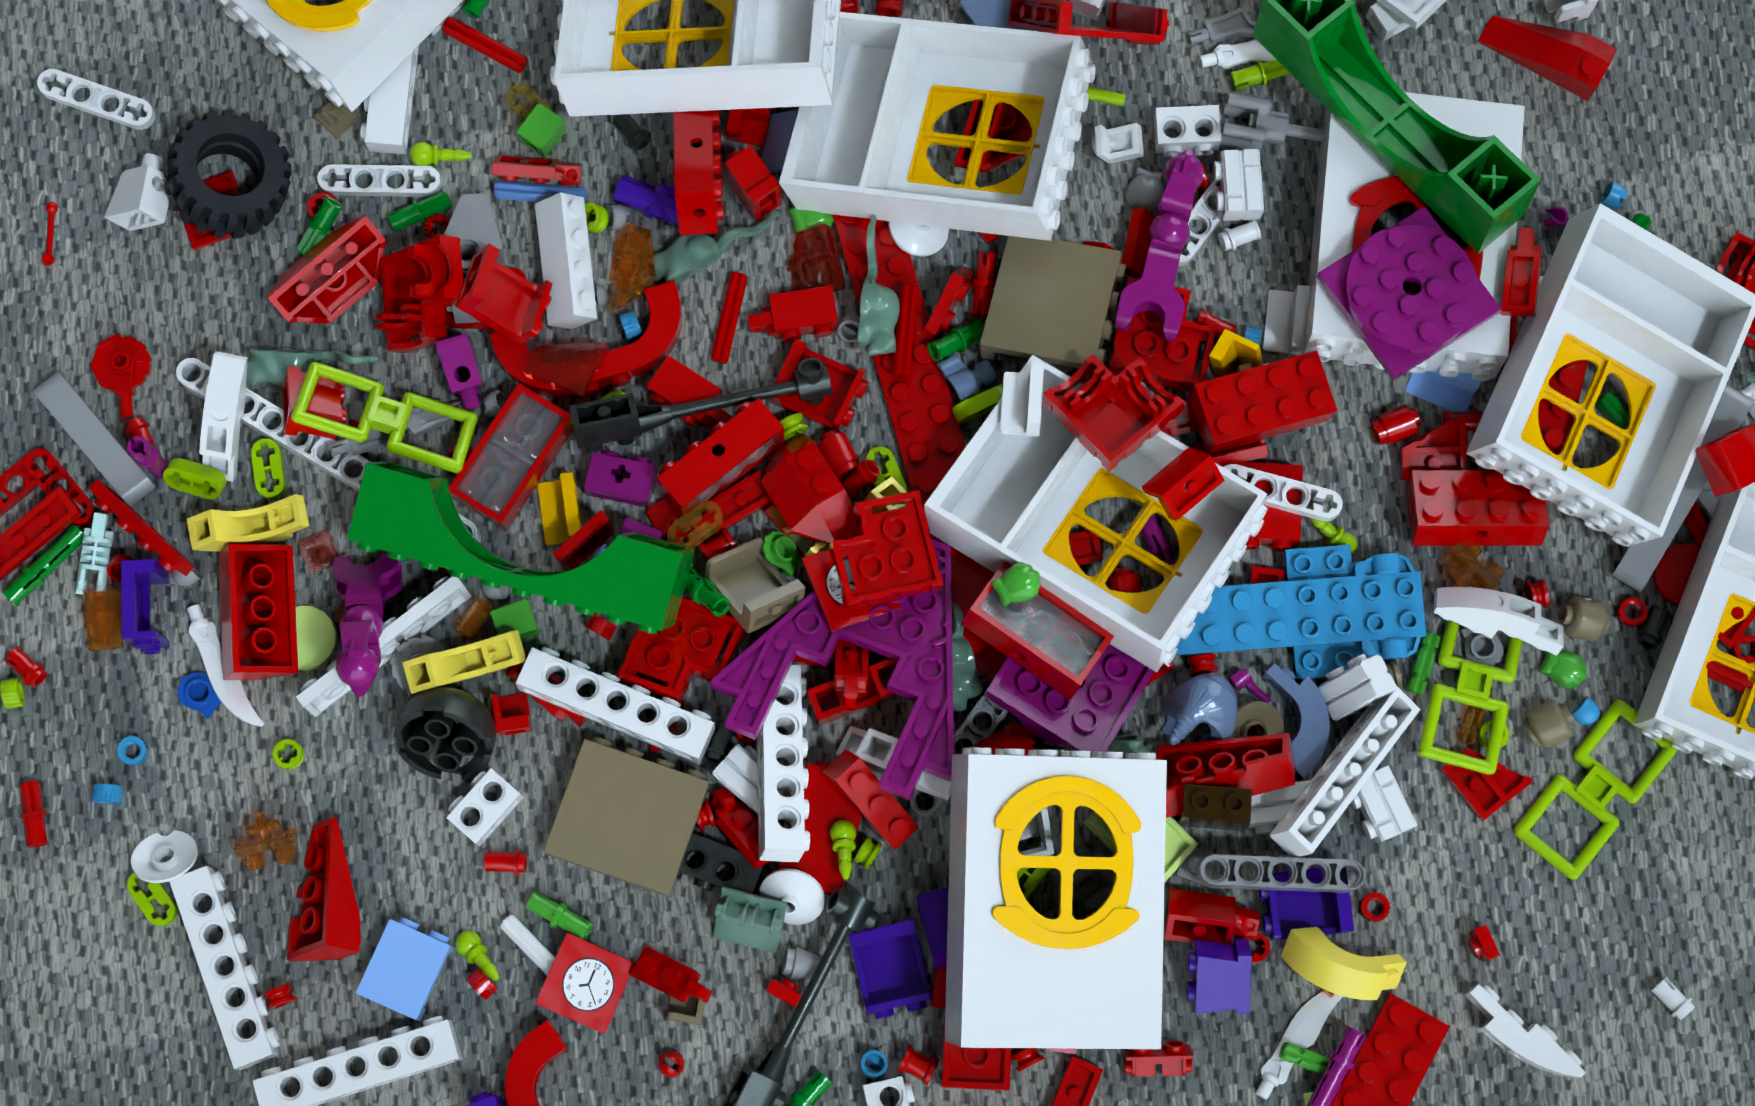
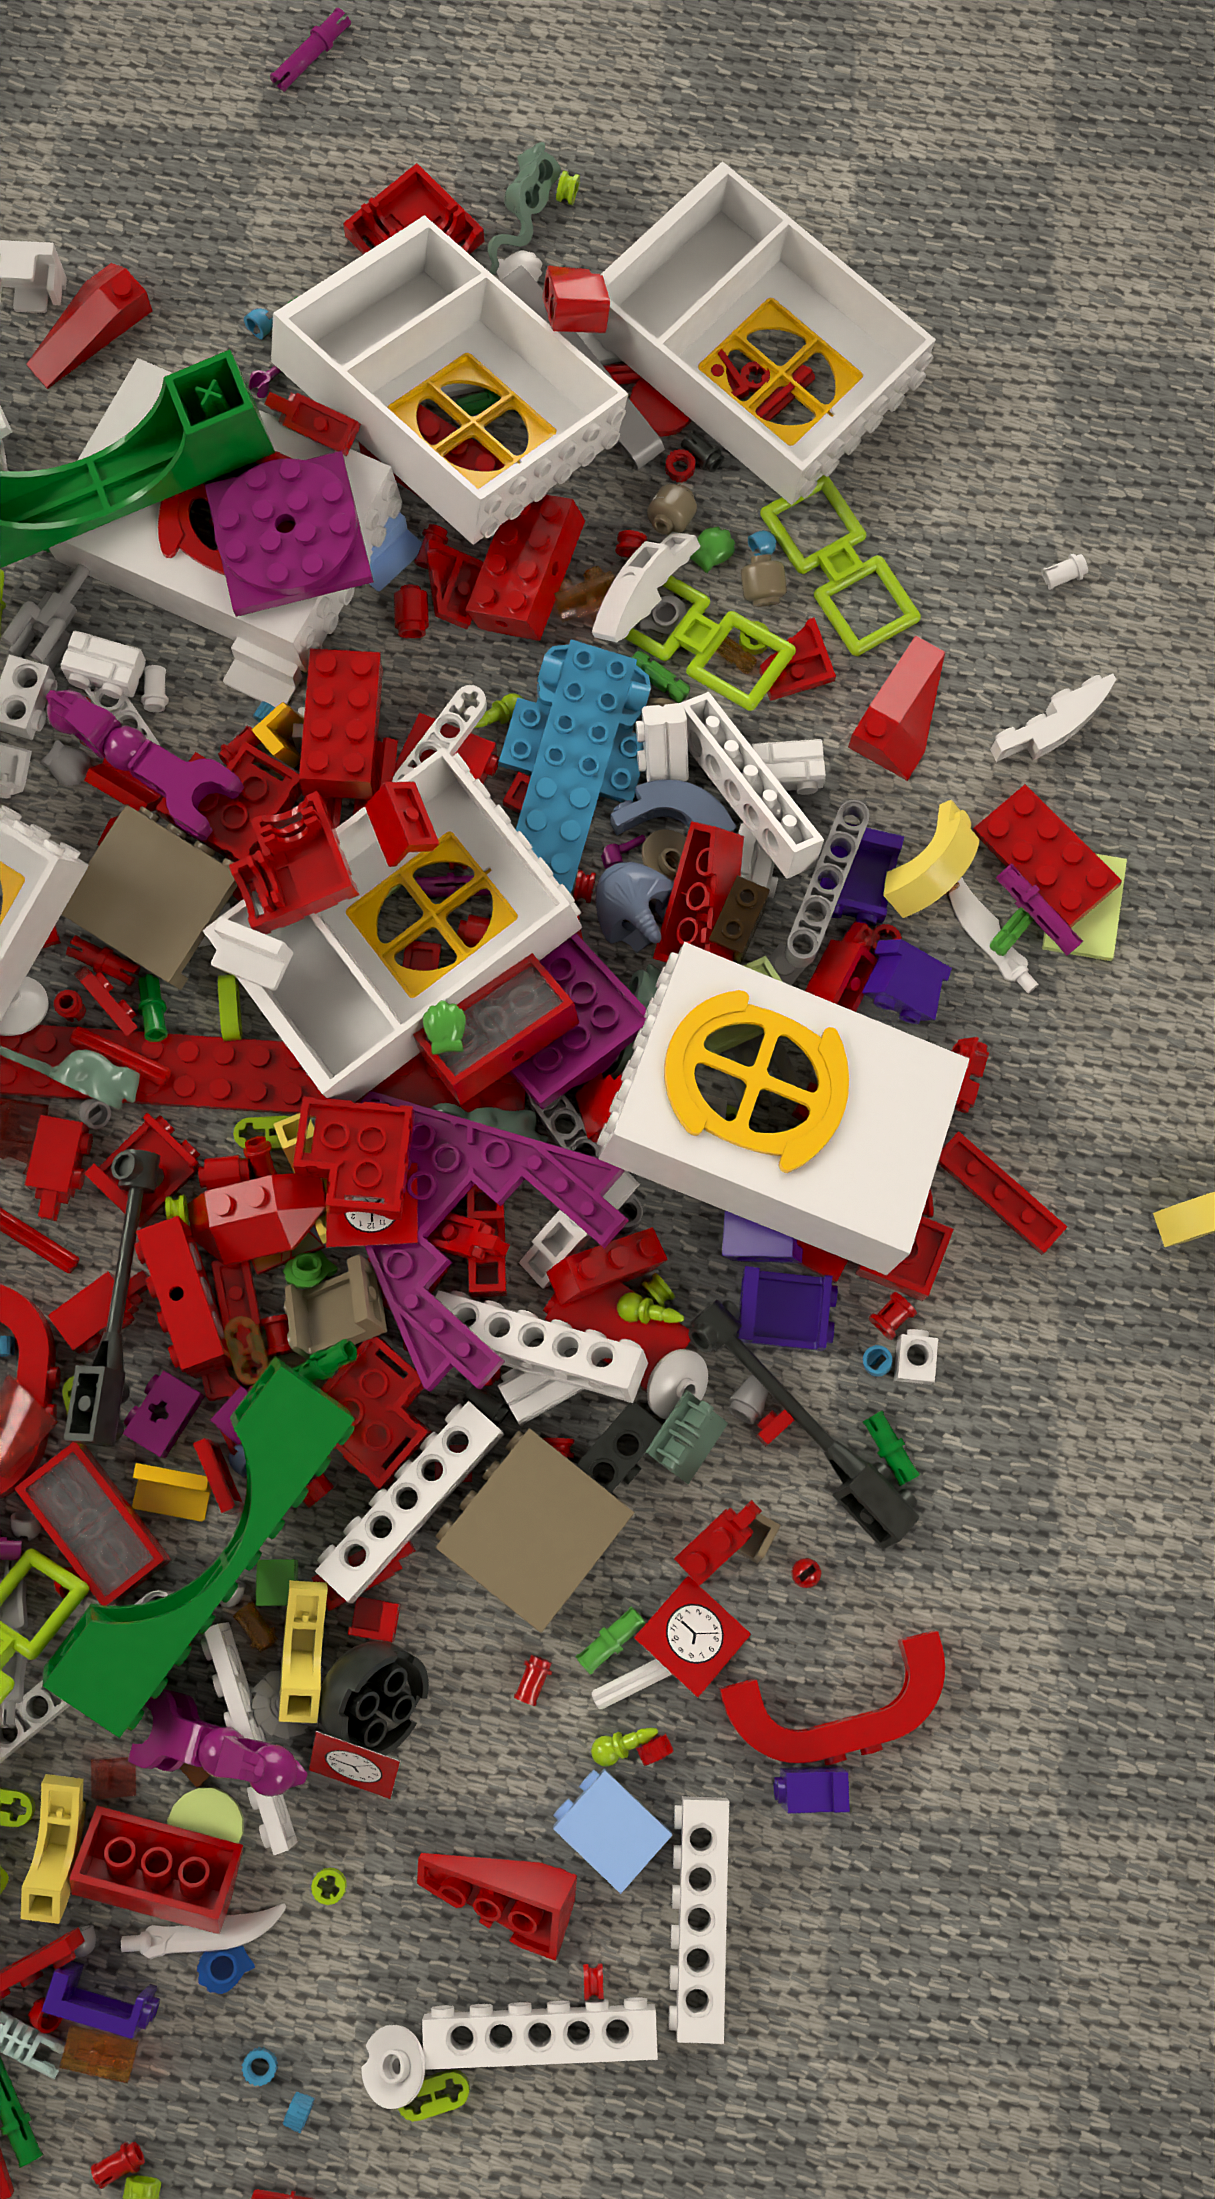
camera: 75 degrees left, 0 degrees up
(252, 848) = (413, 1943): clear orange hips -> none
(388, 737) = (354, 1765): none -> red sticker
(491, 812) = (474, 1679): white brick -> none
(738, 825) = (583, 1414): red hinge -> none
(937, 266) = (63, 1001): none -> red pin
(966, 381) = (198, 1016): sand blue piece -> none
(1381, 899) = (884, 823): red axle -> none
(1471, 891) = (901, 713): none -> red wedge
(1482, 944) = (955, 723): red plate -> none

